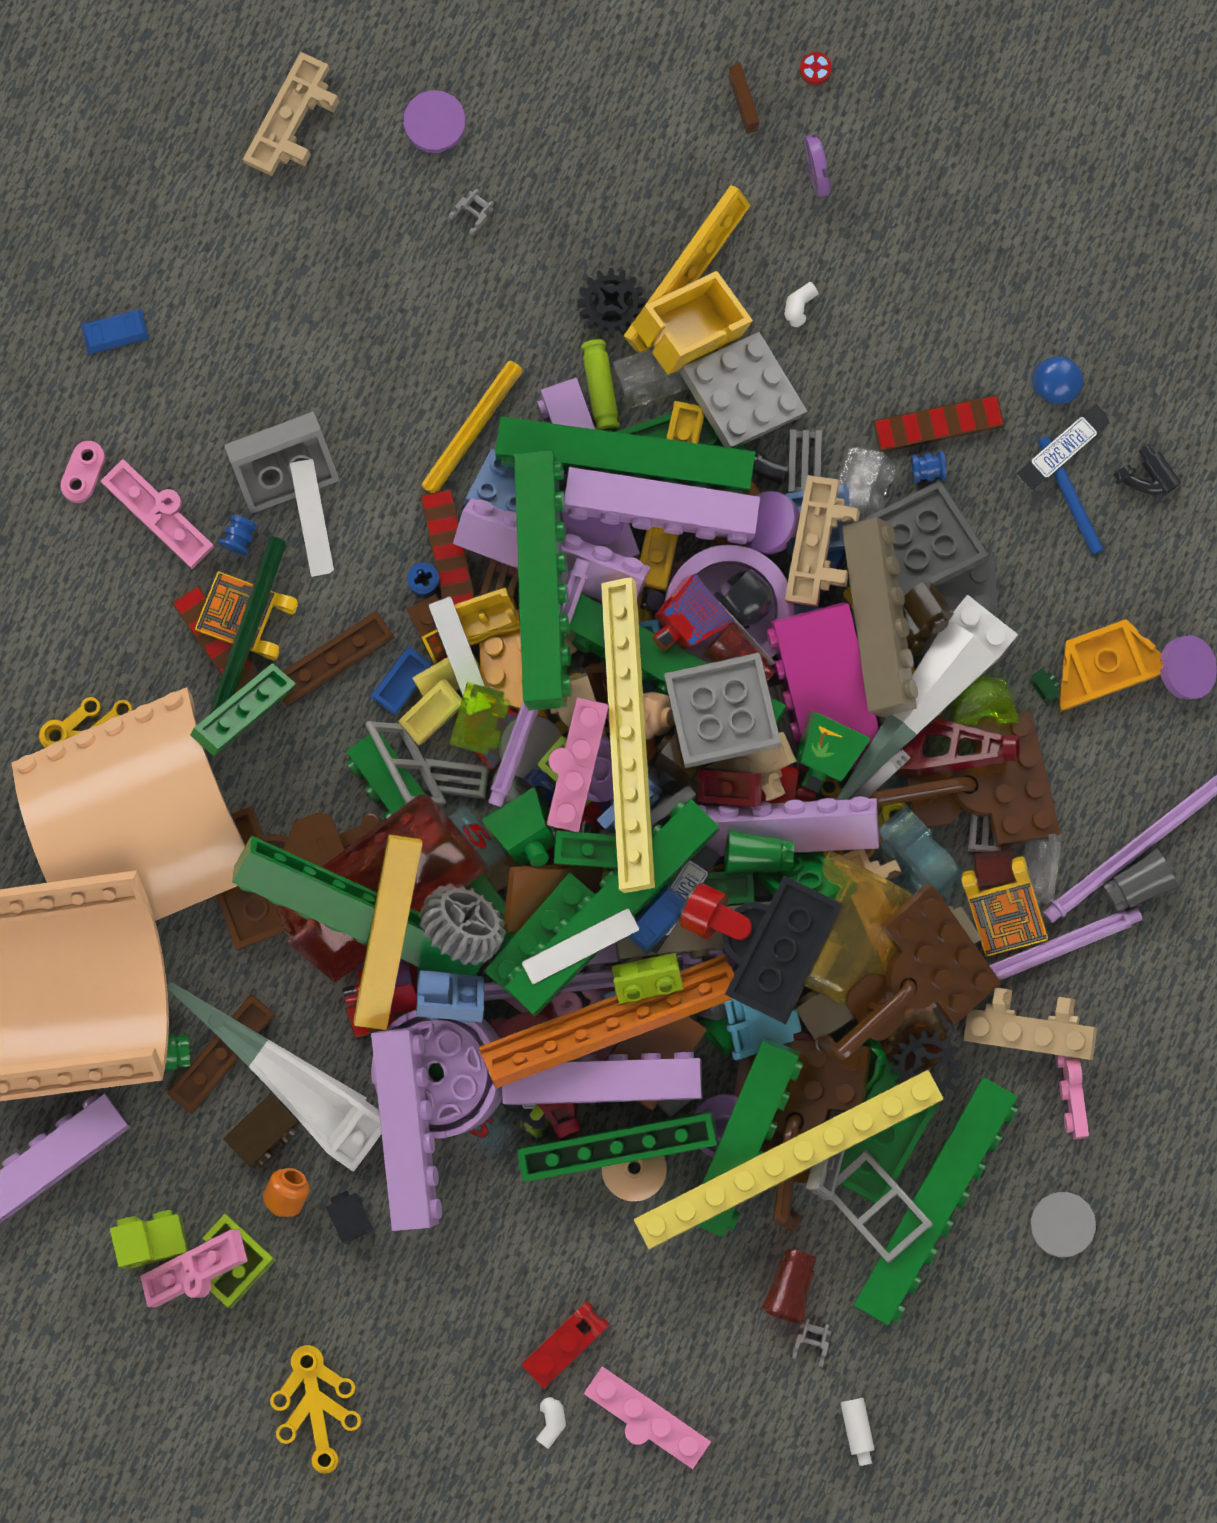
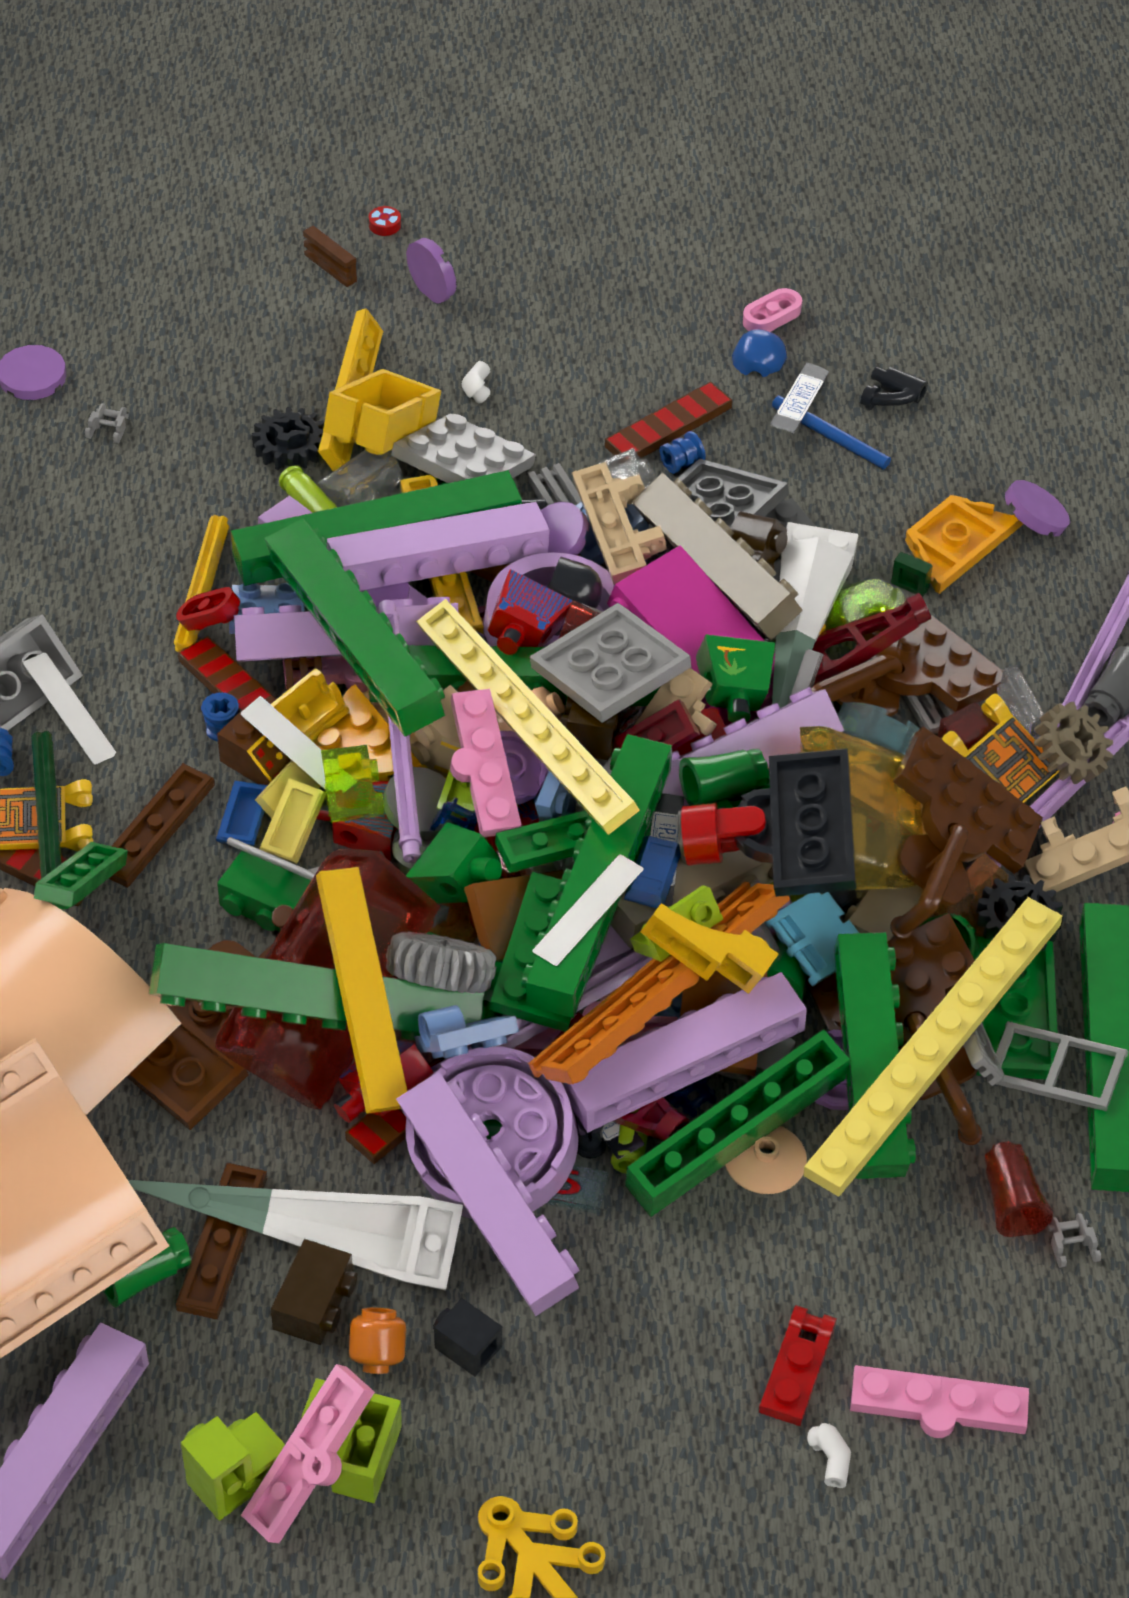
camera: 30 degrees left, 30 degrees down
(454, 477) = (209, 609): none -> red plate
(668, 1041) = (704, 950): none -> yellow slope
(1063, 942) = (1073, 742): none -> dark tan gear
(1094, 335) = (772, 310): none -> bright pink plate

